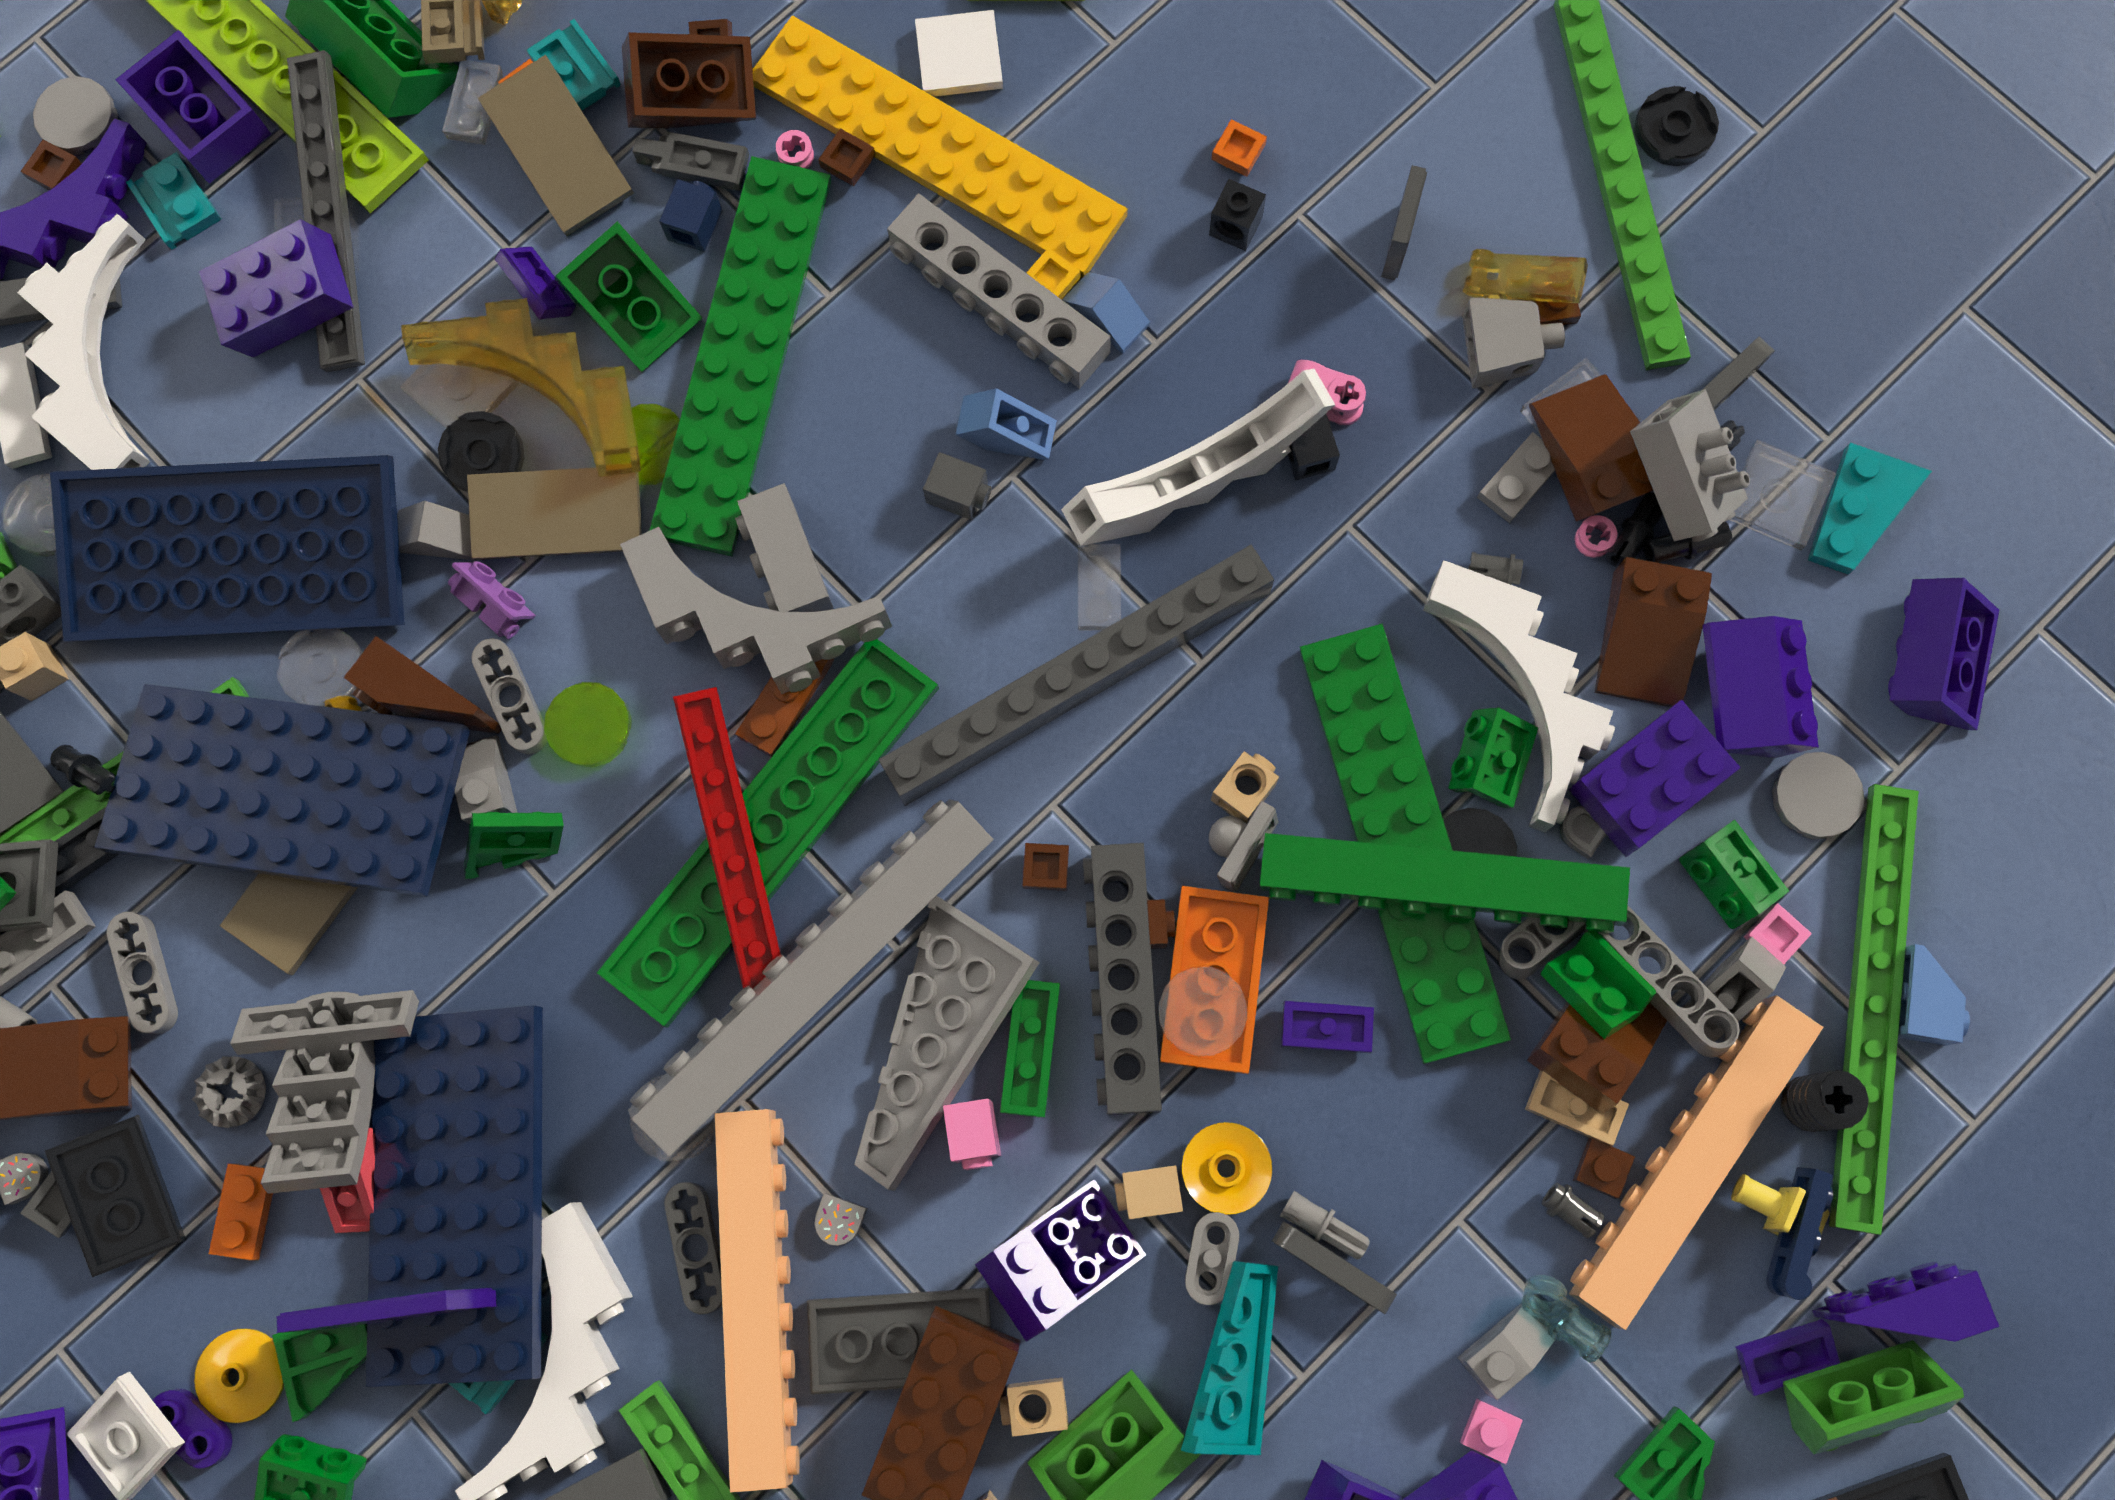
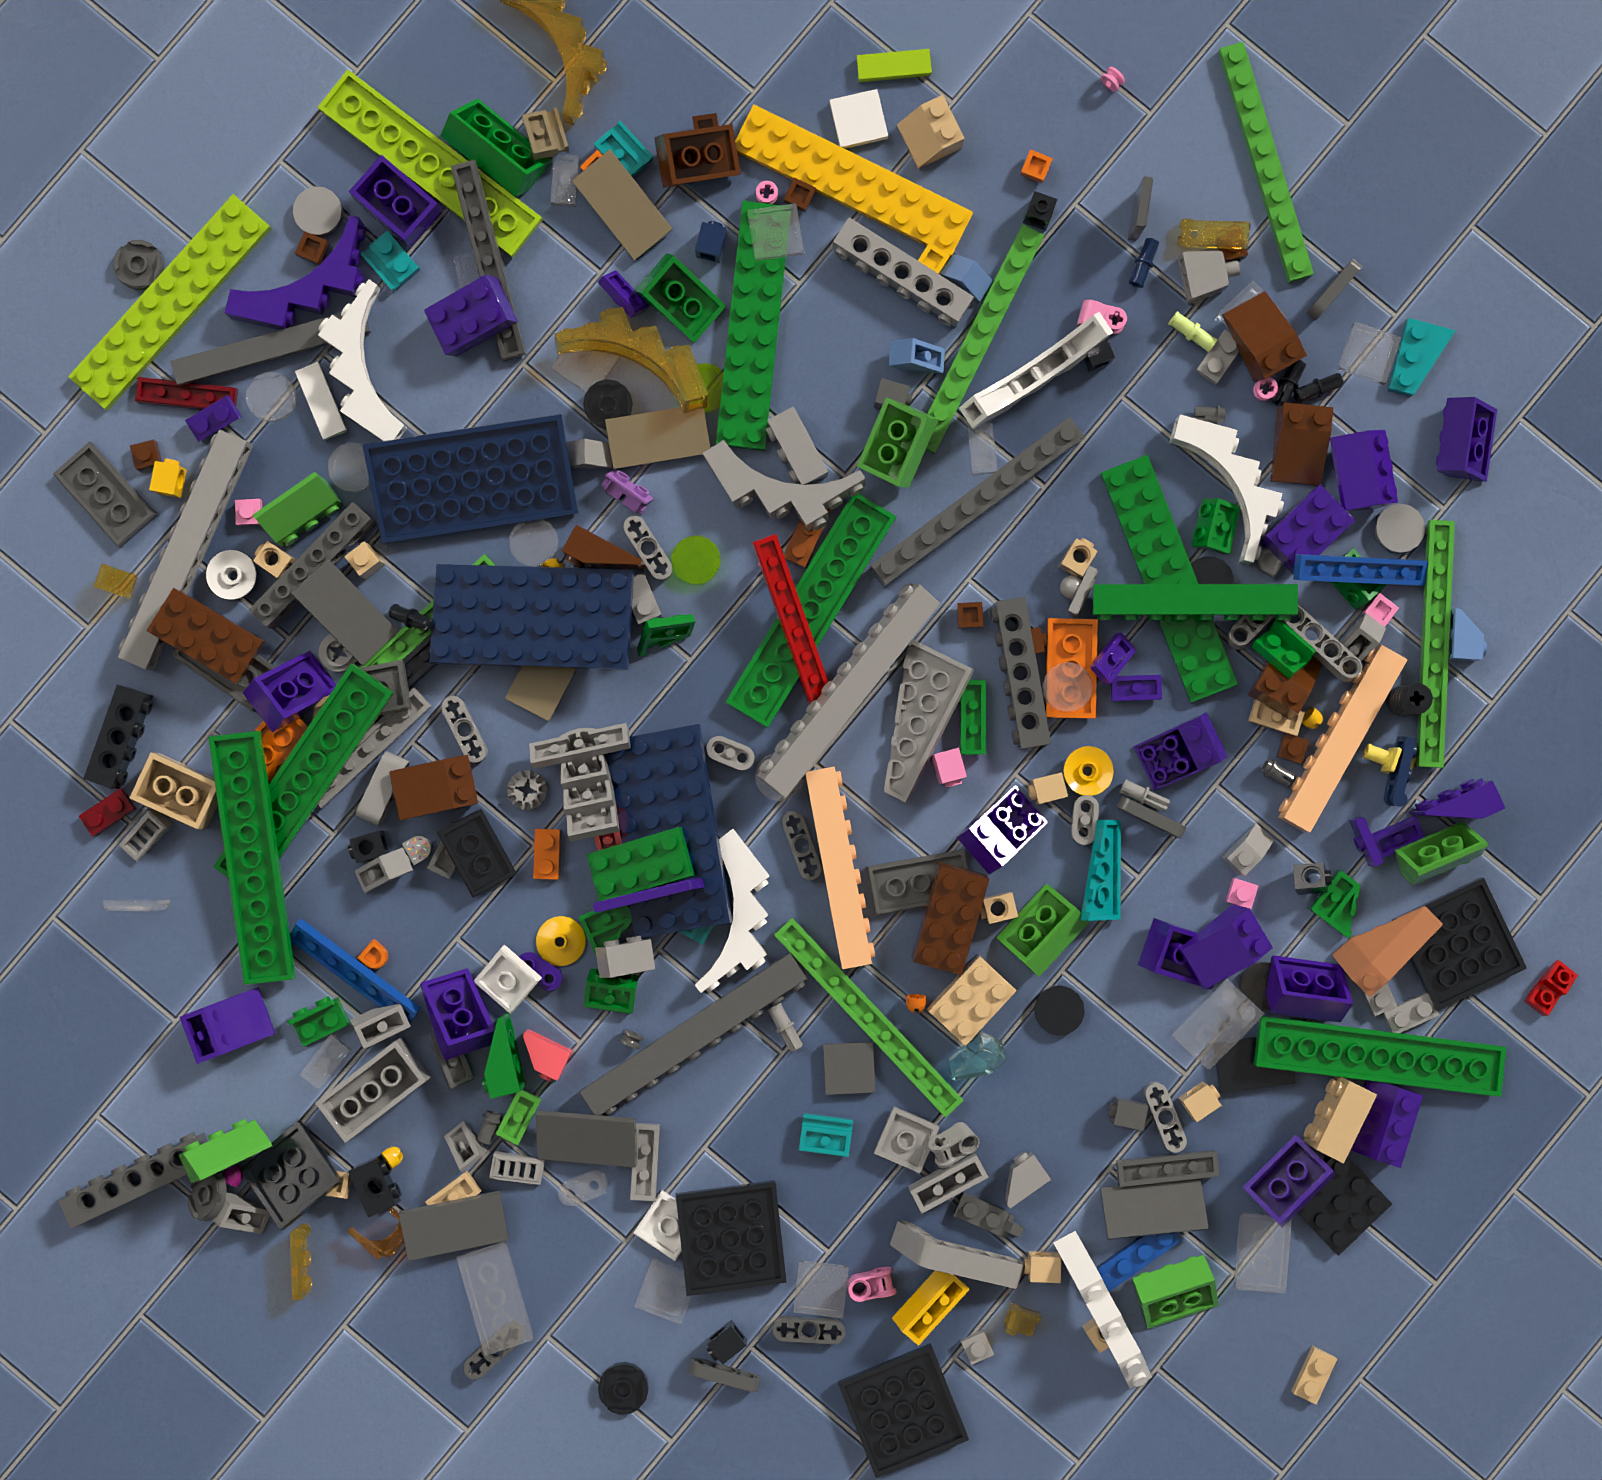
camera: 20 degrees left, 10 degrees up
(339, 1422) = (624, 958): none -> light grey brick
(394, 1249) = (640, 864): none -> green plate
(595, 1065) = (730, 753): none -> light grey plate
(694, 159) = (707, 205): dark grey hinge -> none
(795, 207) = (775, 232): none -> clear tile
(838, 1220) = (878, 822): light grey tile -> none
(952, 560) = (897, 443): none -> bright green slope
(1073, 80) = (931, 132): none -> tan slope
(1112, 411) = (982, 331): none -> bright green plate
(1289, 969) = (1112, 658): none -> dark purple plate
(1377, 27) = (1112, 79): none -> bright pink bush
(1398, 1151) = (1180, 751): none -> dark purple slope
(1404, 314) = (1144, 262): none -> dark blue axle
(1477, 430) = (1192, 331): none -> yellowish green pin
(1564, 1318) = (1276, 830): clear light blue connector -> none
(1605, 1406) = (1301, 874): none -> black brick
(1641, 1115) = (1312, 718): none -> yellow hinge
(1684, 134) = (1297, 126): black tile -> none
(1692, 465) = (1318, 344): light grey piece -> none
(1728, 1359) = (1365, 842): none -> dark purple plate
(1744, 856) = (1360, 569): none -> blue plate

